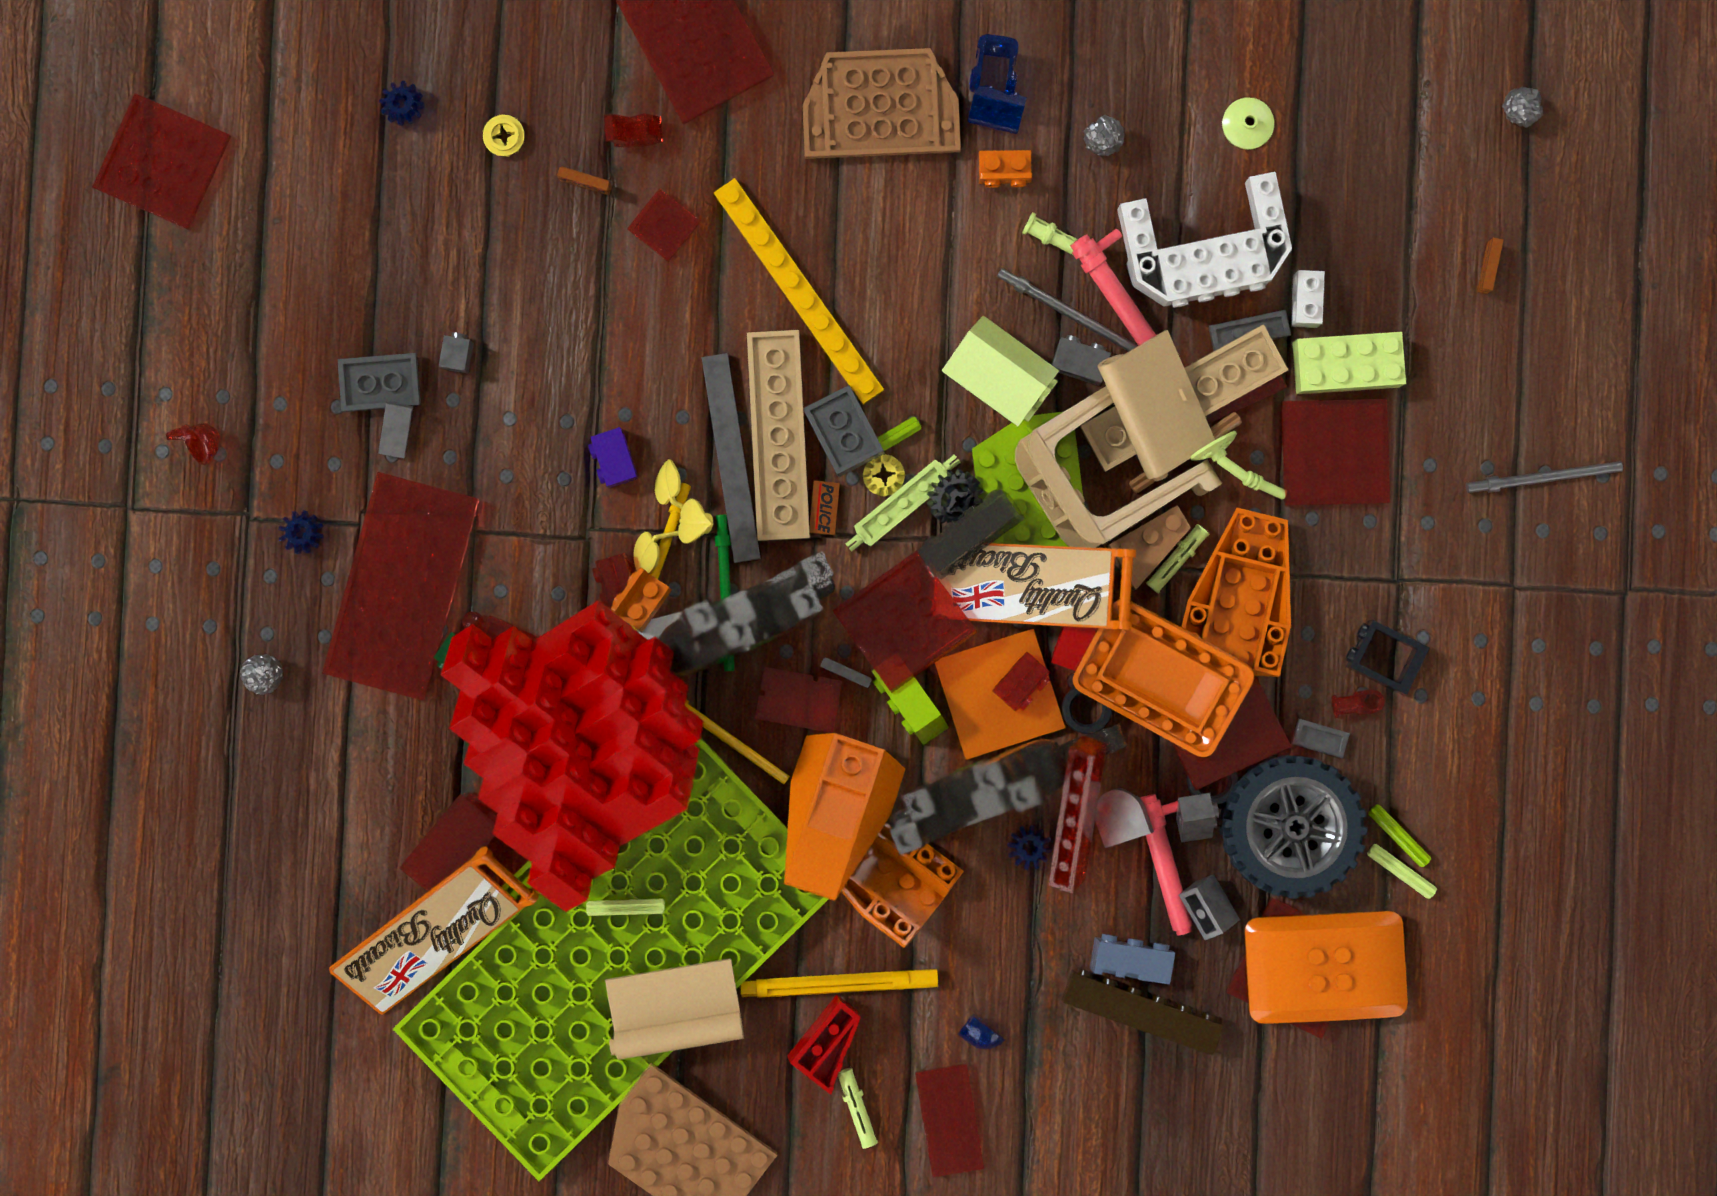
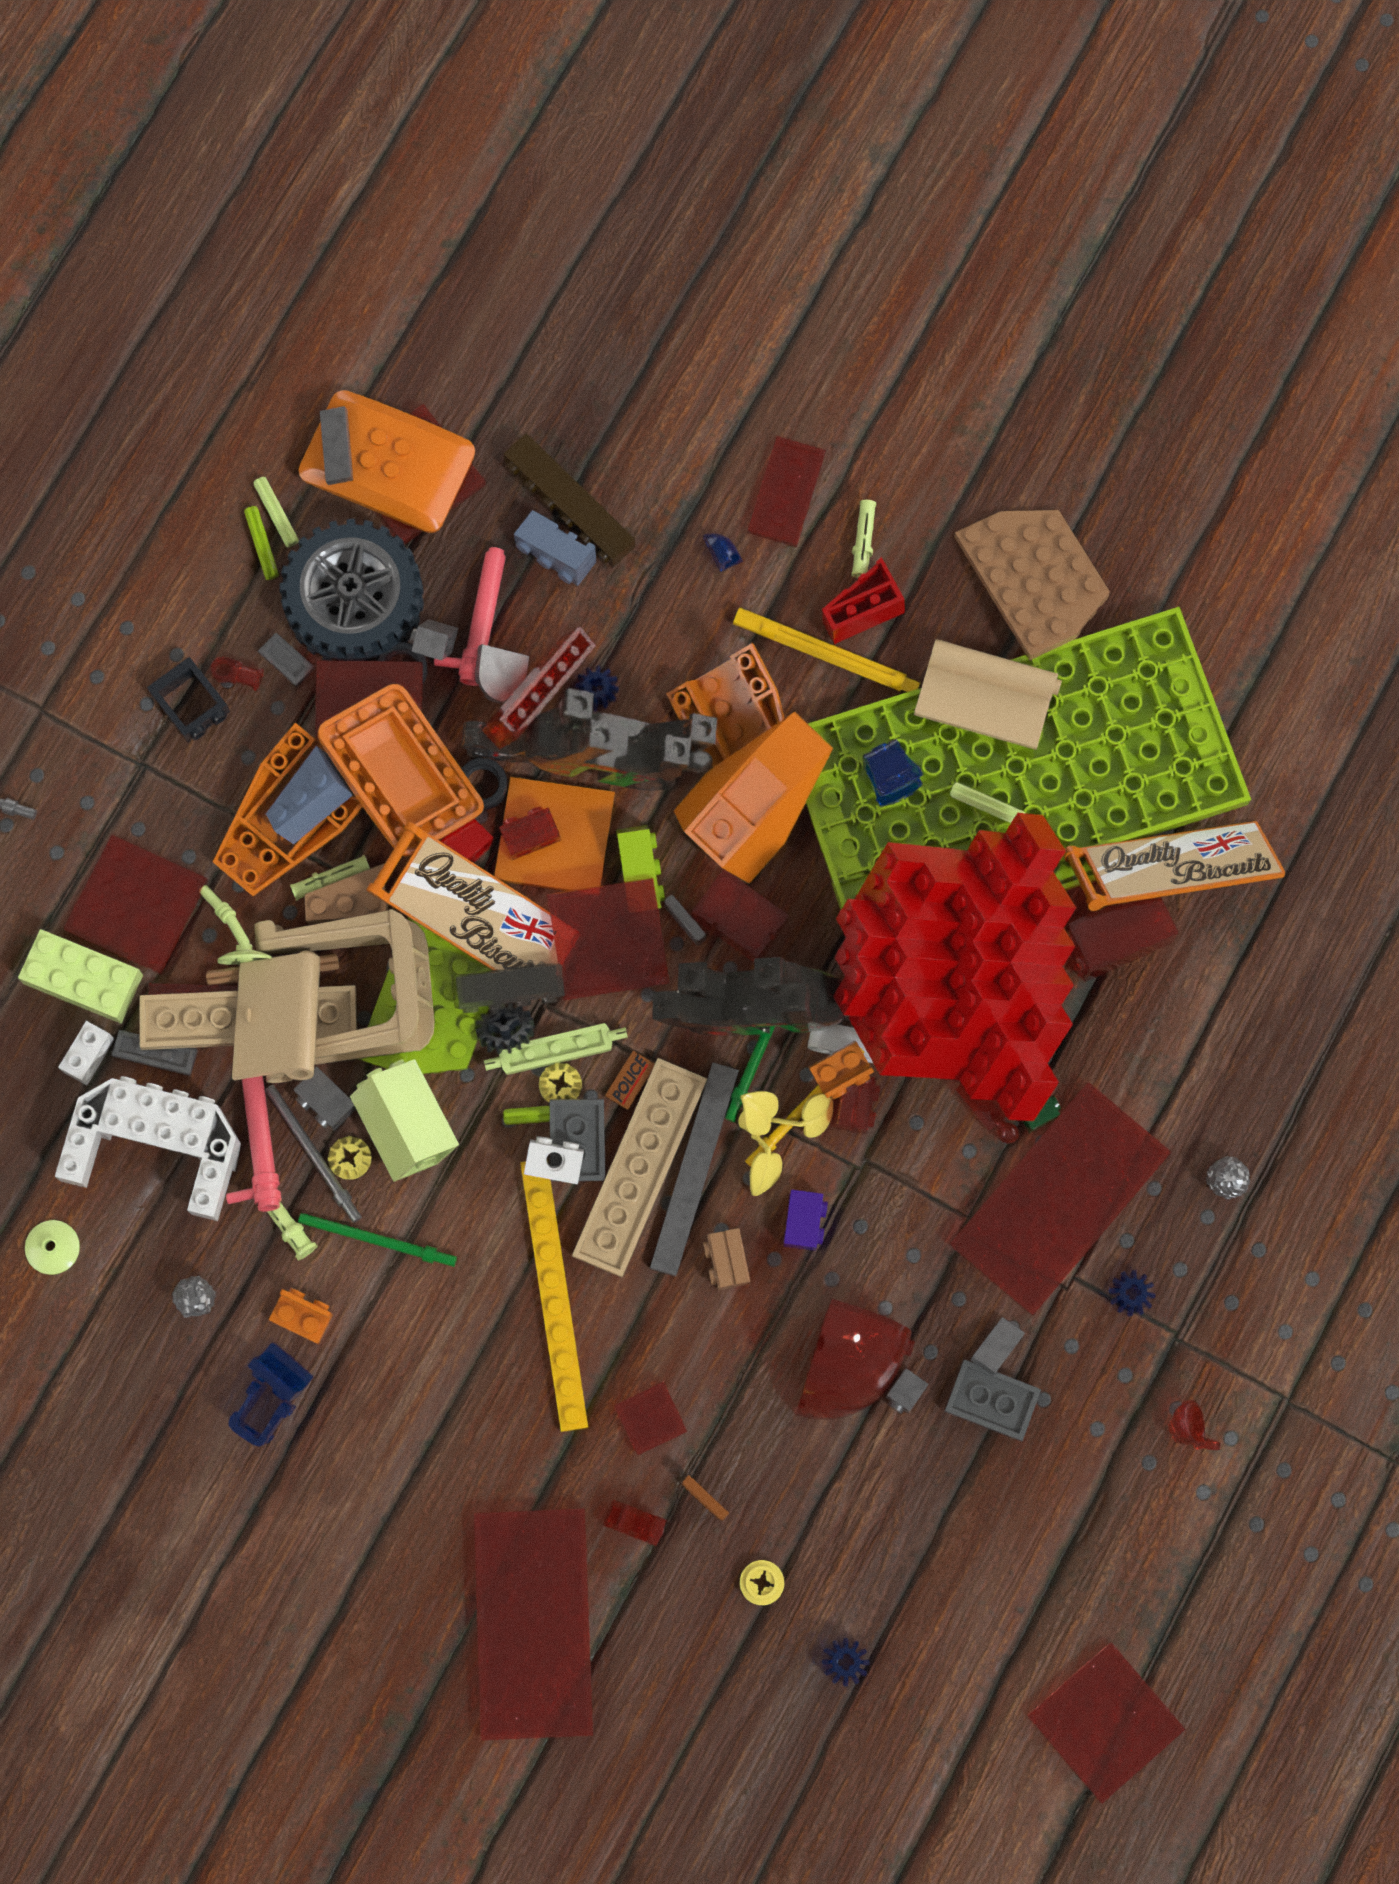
camera: 160 degrees left, 10 degrees down
(514, 353) = (852, 1362): none -> clear red brick
(663, 392) = (727, 1259): none -> medium nougat brick
(723, 891) = (891, 773): none -> clear blue piece
(740, 747) = (813, 899): yellow bar -> none
(840, 393) = (538, 1166): none -> white brick
(880, 106) = (388, 1432): medium nougat plate -> none
(923, 272) = (428, 1253): none -> green bar
(1021, 323) = (346, 1170): none -> light yellow gear
(1209, 907) = (463, 559): flat silver brick -> none
(1232, 613) = (308, 797): none -> sand blue wedge
(1378, 955) = (336, 445): none -> flat silver tile

